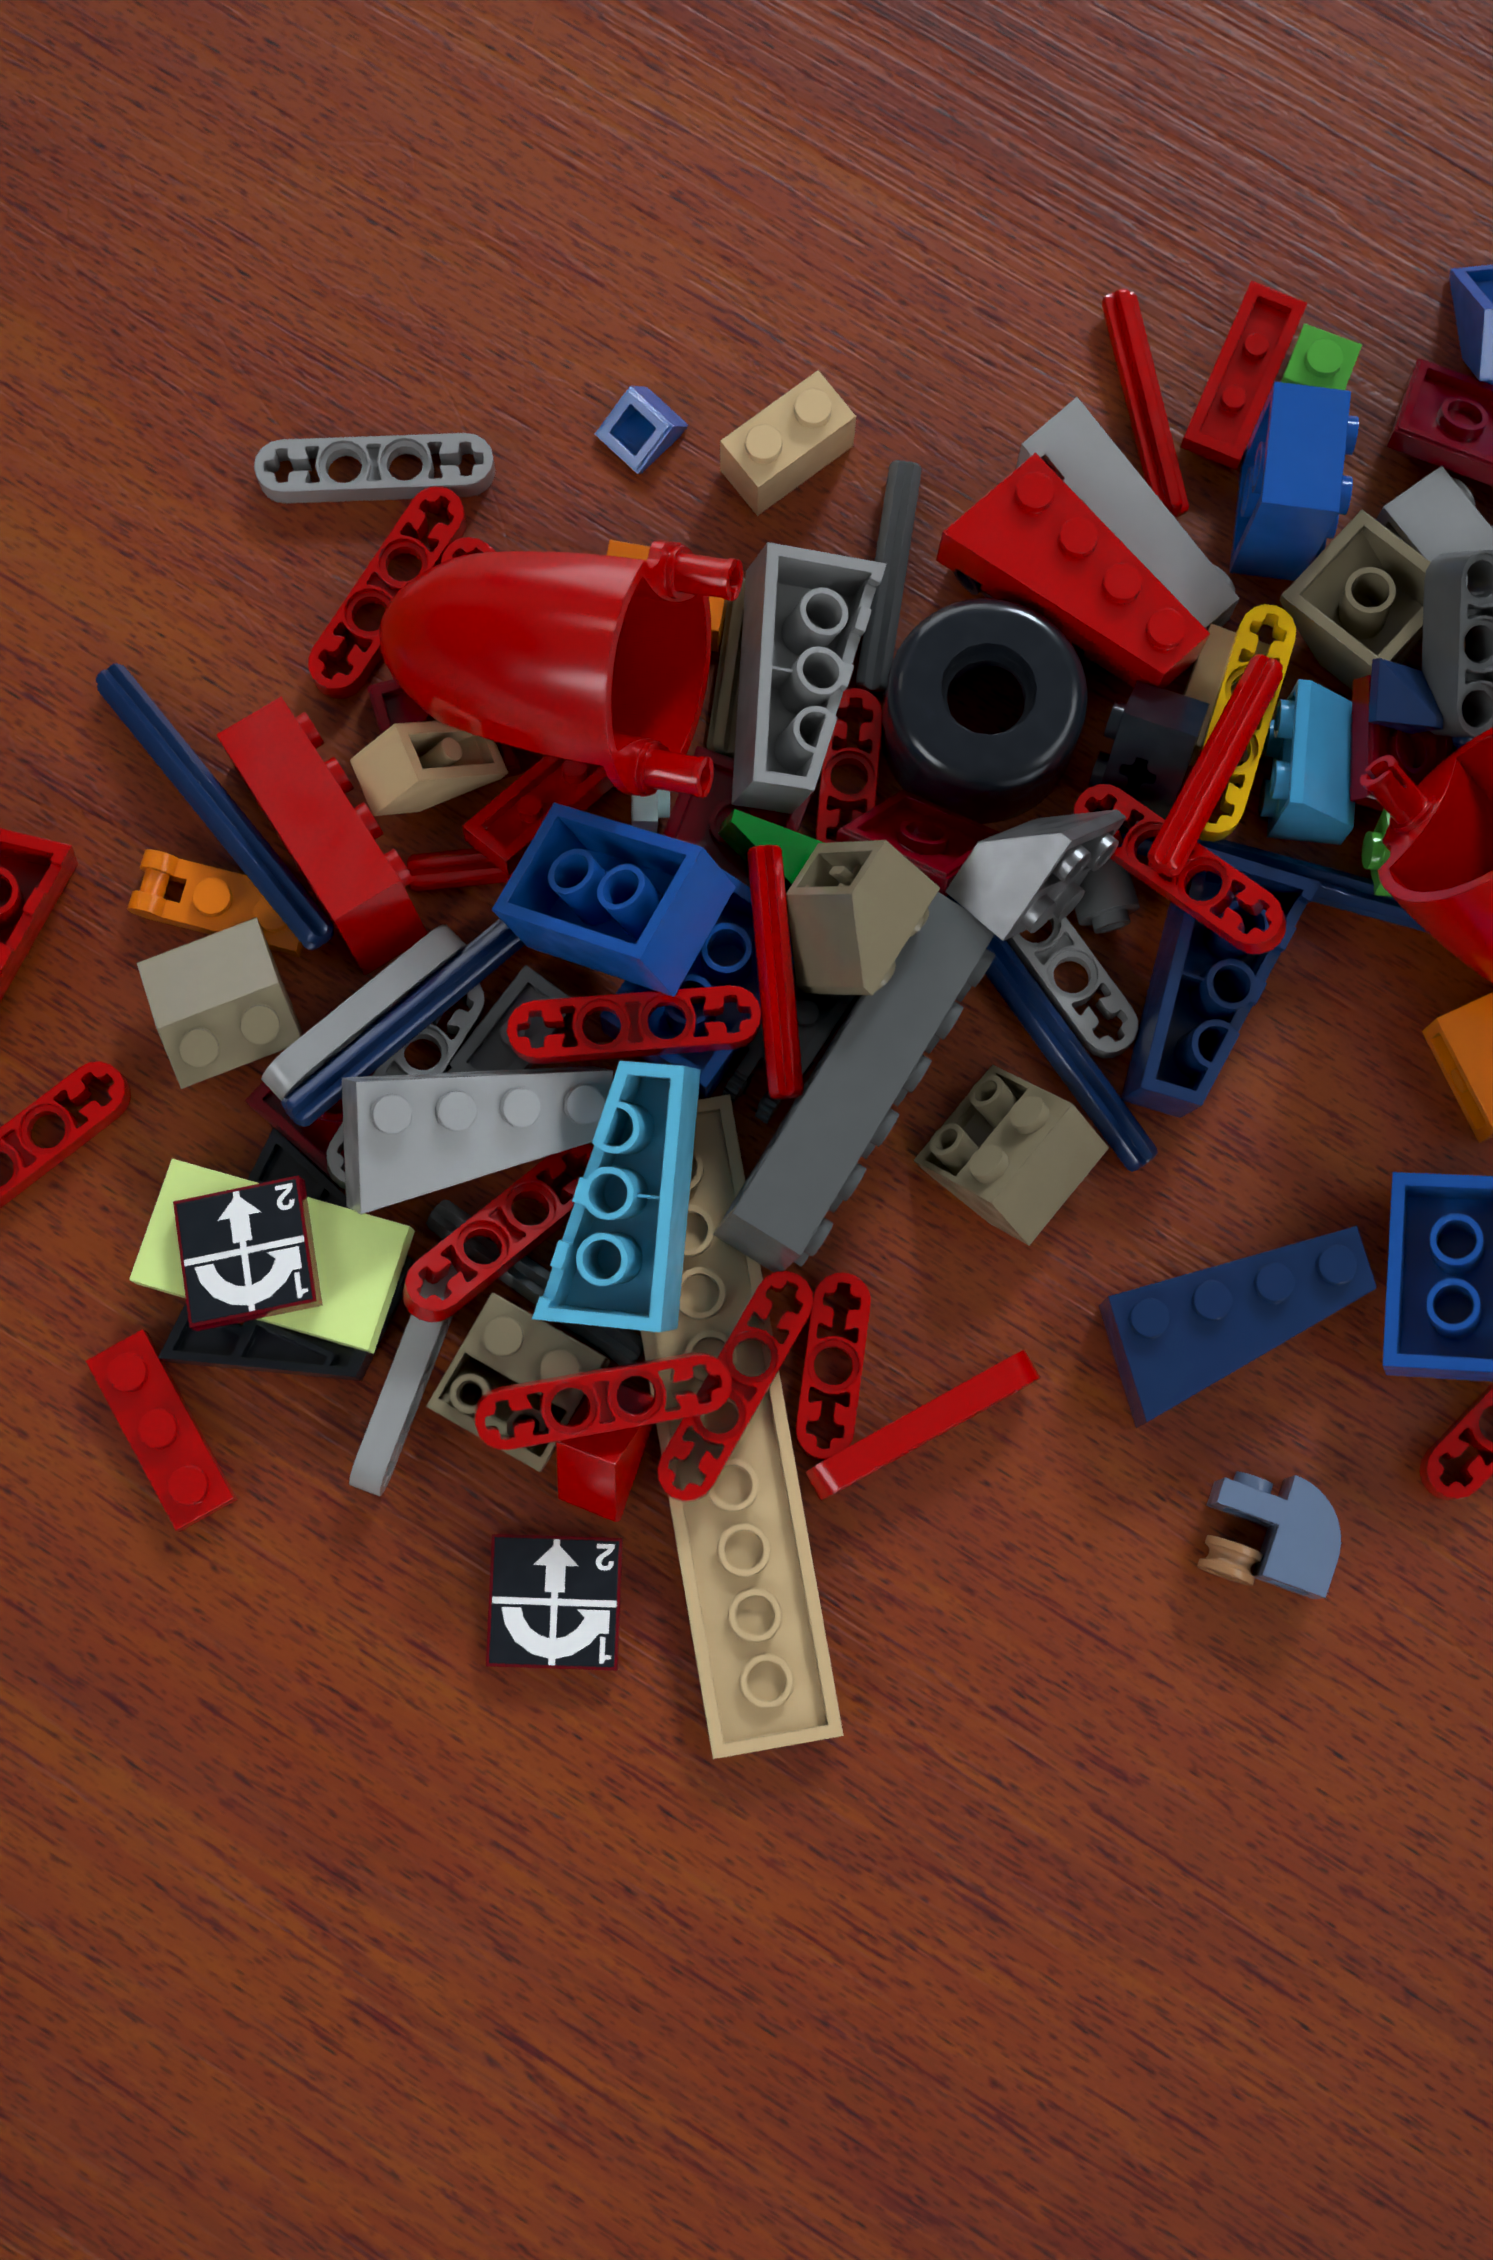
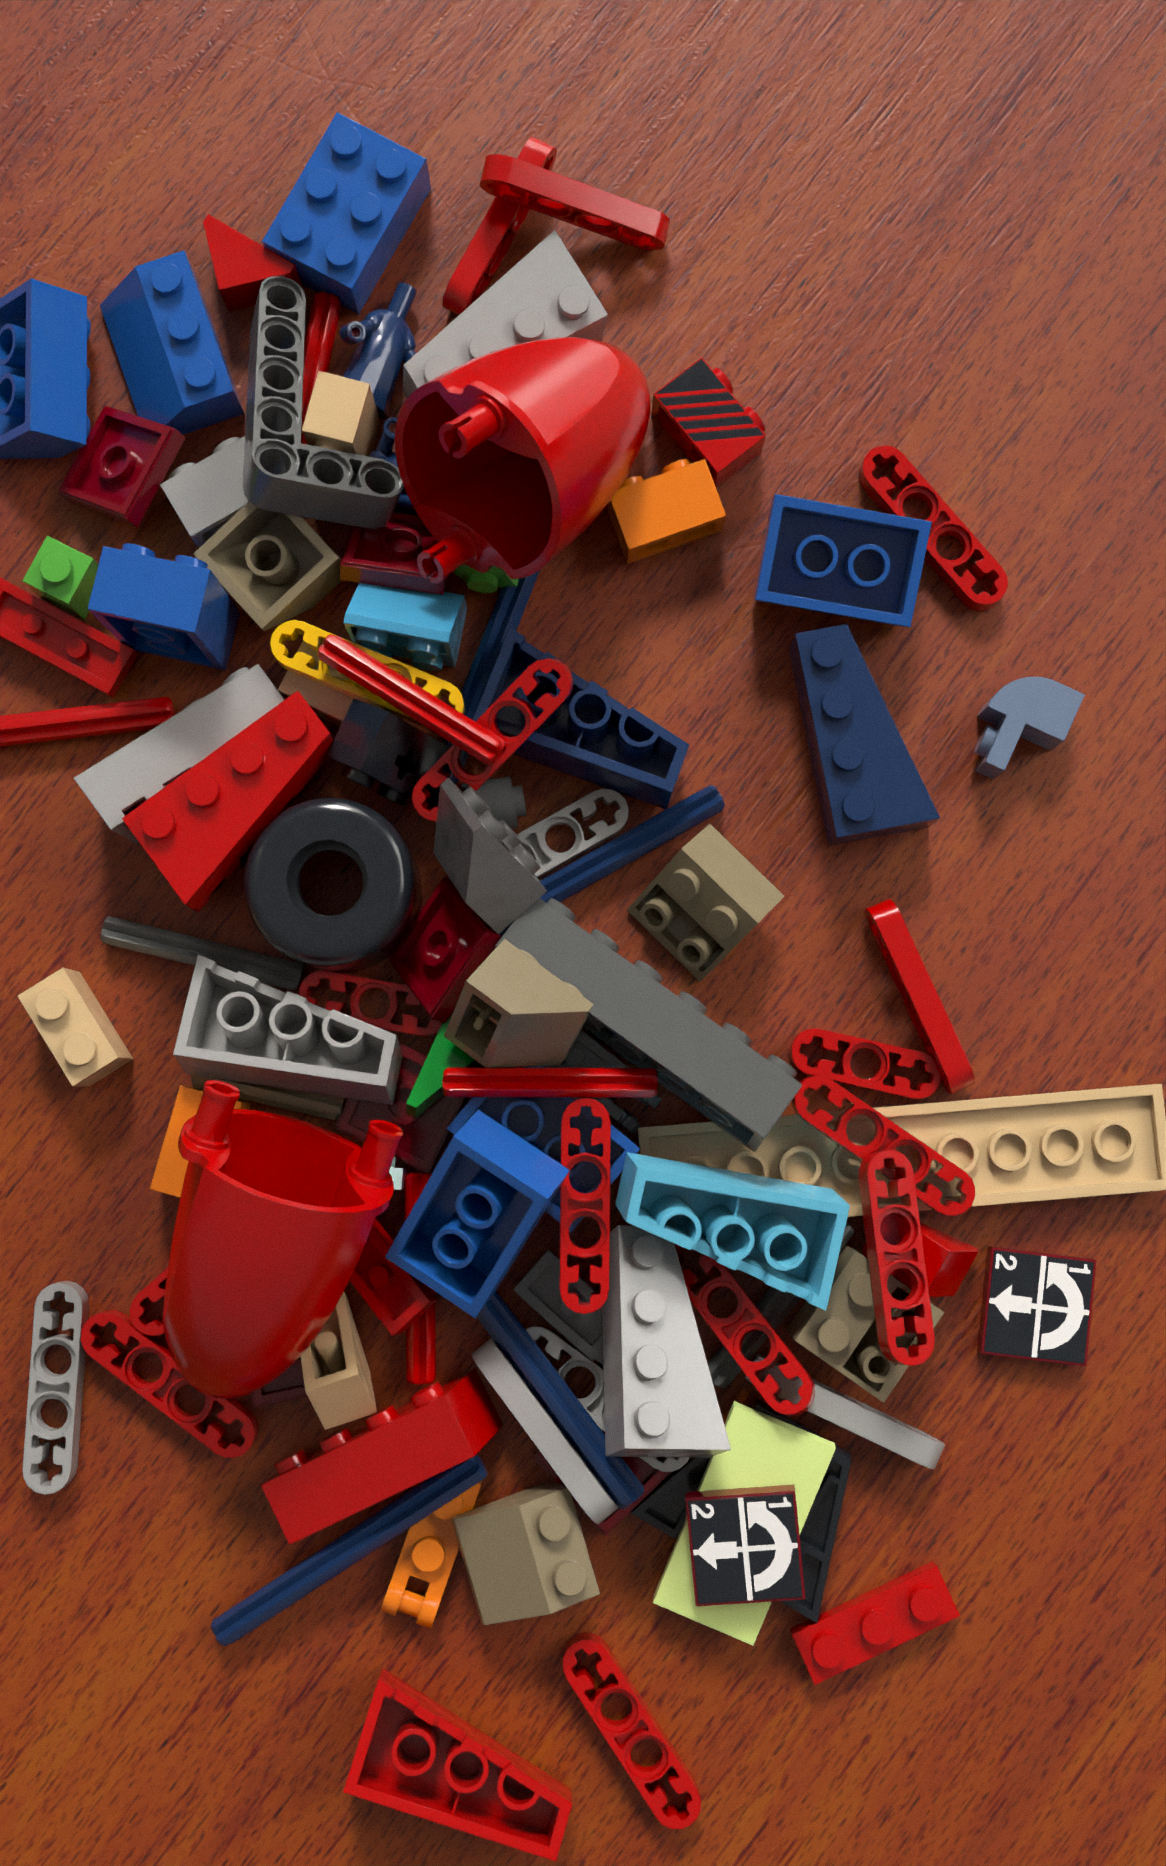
camera: 85 degrees left, 5 degrees up
(640, 428) = (44, 1151): blue slope -> none
(1229, 1560) = (1043, 765): medium nougat bush -> none
(1402, 699) = (363, 541): dark blue slope -> none

